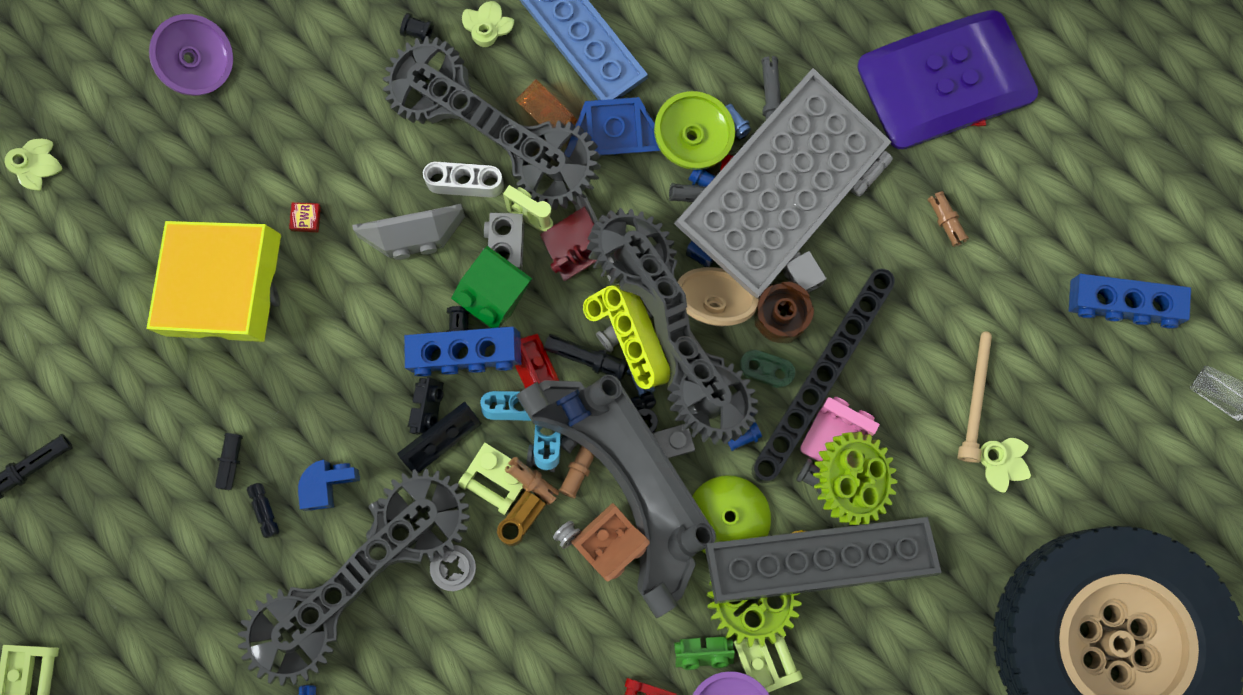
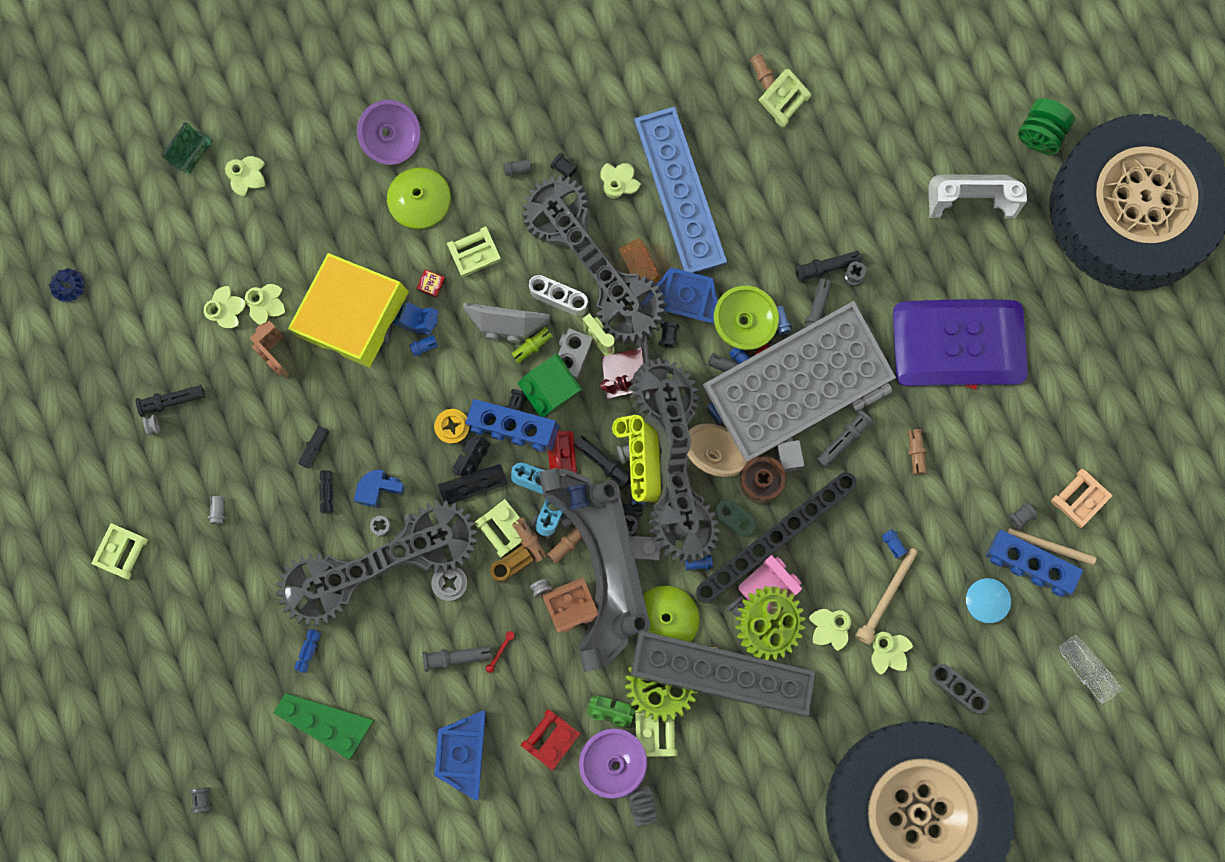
camera: 25 degrees right, 0 degrees up
(15, 505) = (151, 425): none -> light grey bush
(64, 330) = (228, 308): none -> yellowish green plate
(112, 309) = (267, 305): none -> yellowish green plate
(122, 351) = (264, 339): none -> nougat bracket
(133, 581) = (216, 510): none -> light grey pin
(263, 134) = (420, 210): none -> lime dish
(301, 264) = (416, 319): none -> blue brick
(321, 293) = (423, 345): none -> blue pin
(340, 521) = (379, 519): none -> light grey bush
(349, 168) = (477, 257): none -> yellowish green plate
(360, 48) = (517, 167): none -> dark grey pin
(376, 377) = (442, 421): none -> yellow gear
(452, 249) = (532, 345): none -> lime pin
(481, 661) = (445, 658): none -> dark grey pin
(539, 653) = (509, 636): none -> red hinge
(611, 181) = (669, 335): none -> black bush
(755, 47) = (817, 267): none -> black pin
(798, 37) = (857, 267): none -> dark grey bush
(867, 221) = (851, 432): none -> dark grey pin
(924, 463) = (828, 630): none -> yellowish green plate
(961, 333) = (894, 543): none -> blue pin
(1093, 362) = (988, 600): none -> medium azure dish
(1095, 251) = (1022, 516): none -> dark grey bush
(1114, 477) = (969, 693): none -> dark grey beam
(1146, 274) = (1054, 547): none -> tan bar
(1161, 211) = (1087, 503): none -> light nougat plate

